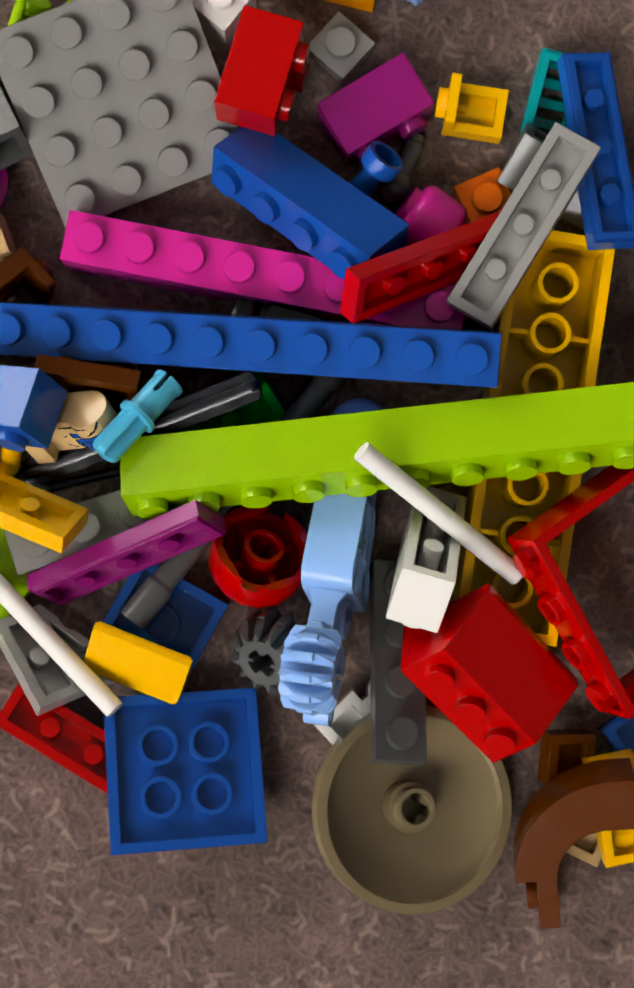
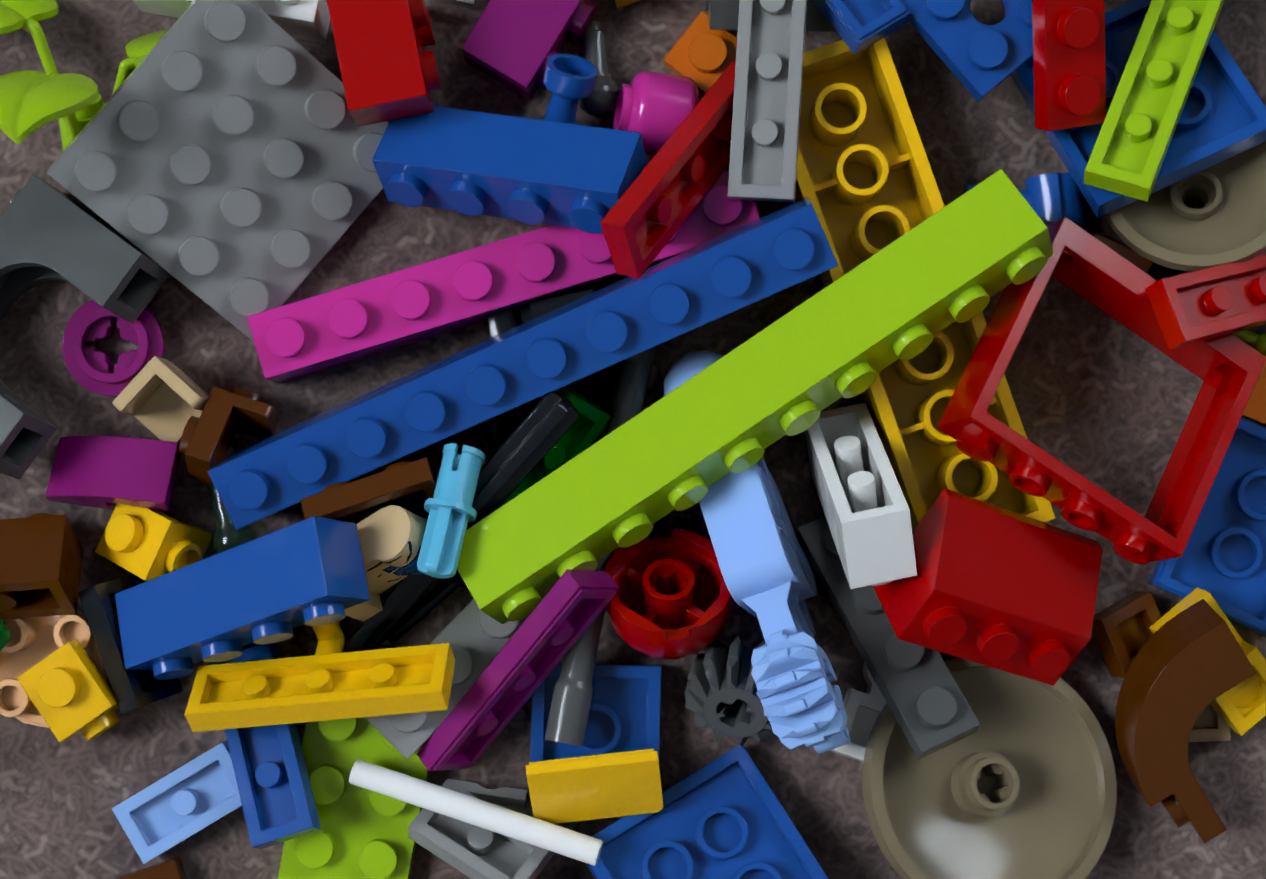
camera: 20 degrees left, 0 degrees up
(437, 512) = (845, 439): white bar -> none

